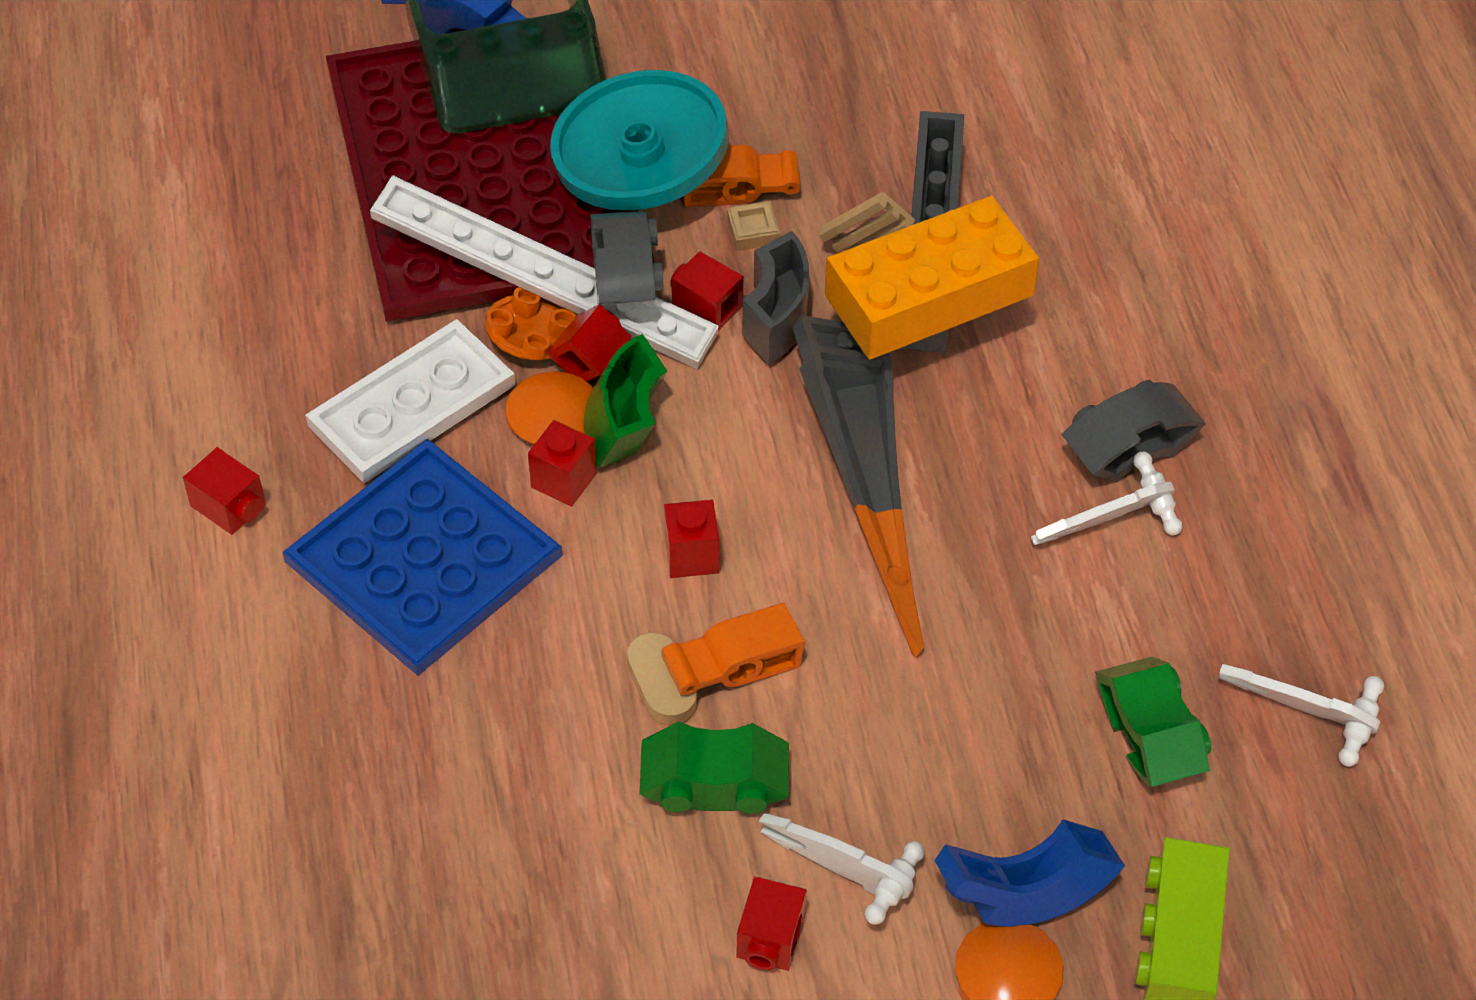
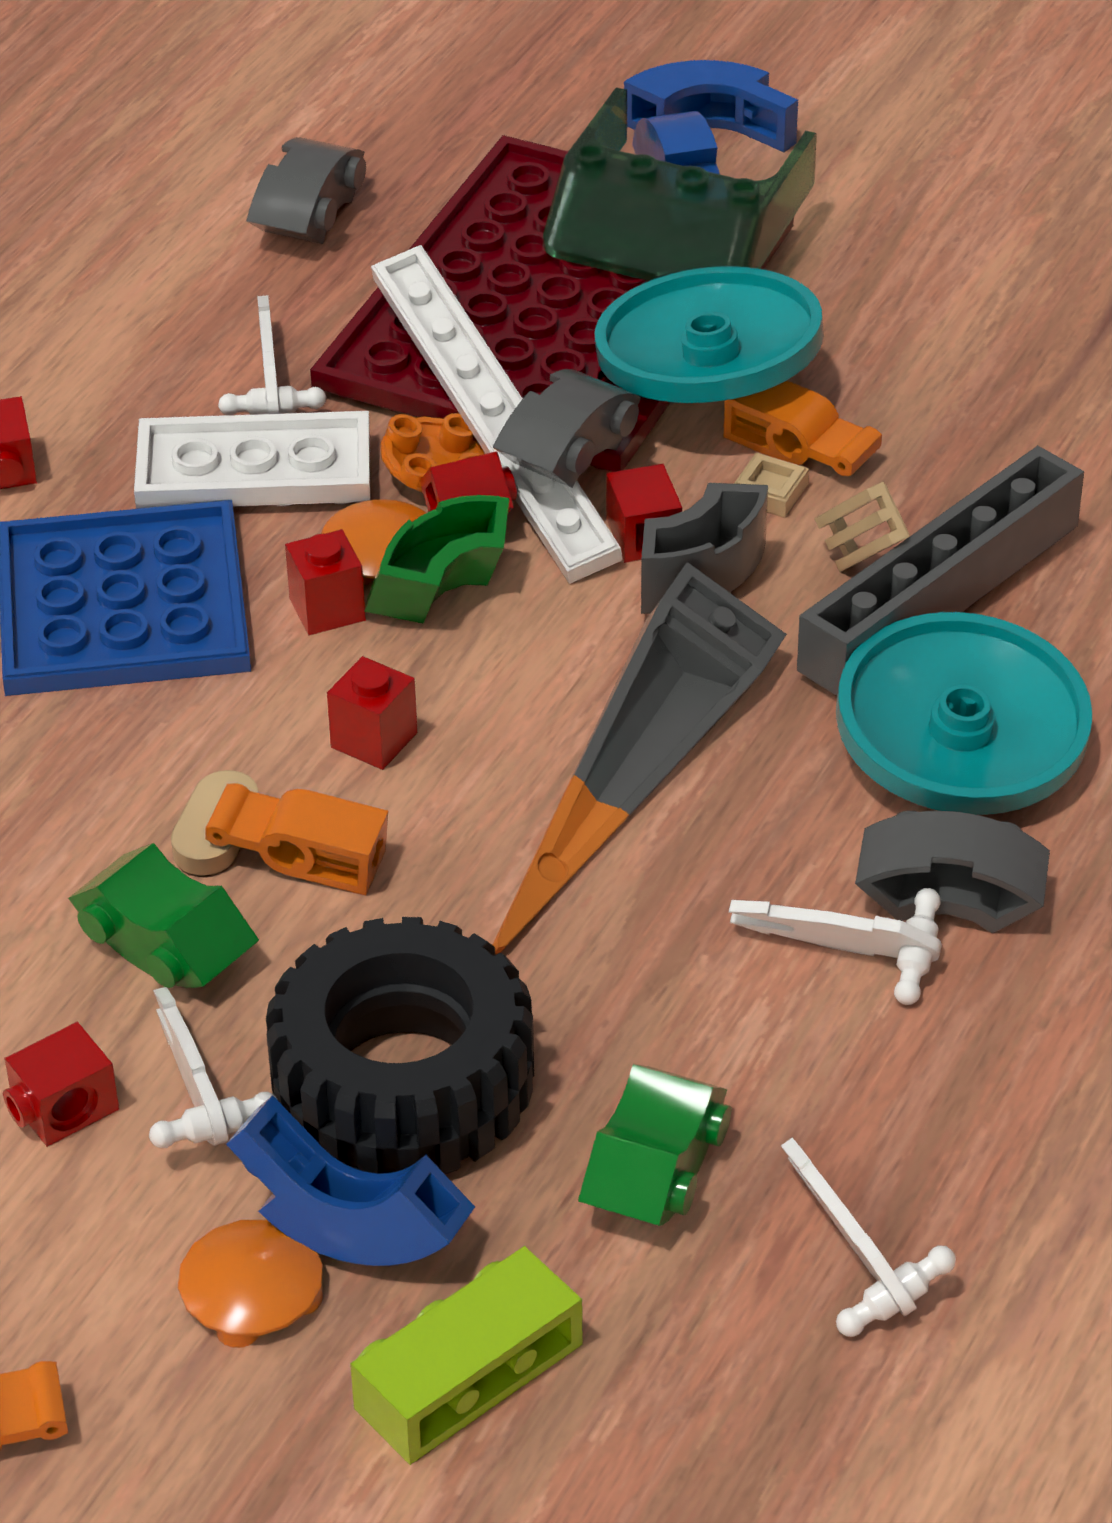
camera: 40 degrees right, 10 degrees down
(235, 169) = (306, 189): none -> dark grey brick
(354, 326) = (271, 398): none -> white piece
(930, 276) = (847, 585): light orange brick -> none
(969, 701) = (399, 982): none -> black tyre
(1060, 339) = (963, 713): none -> teal dish

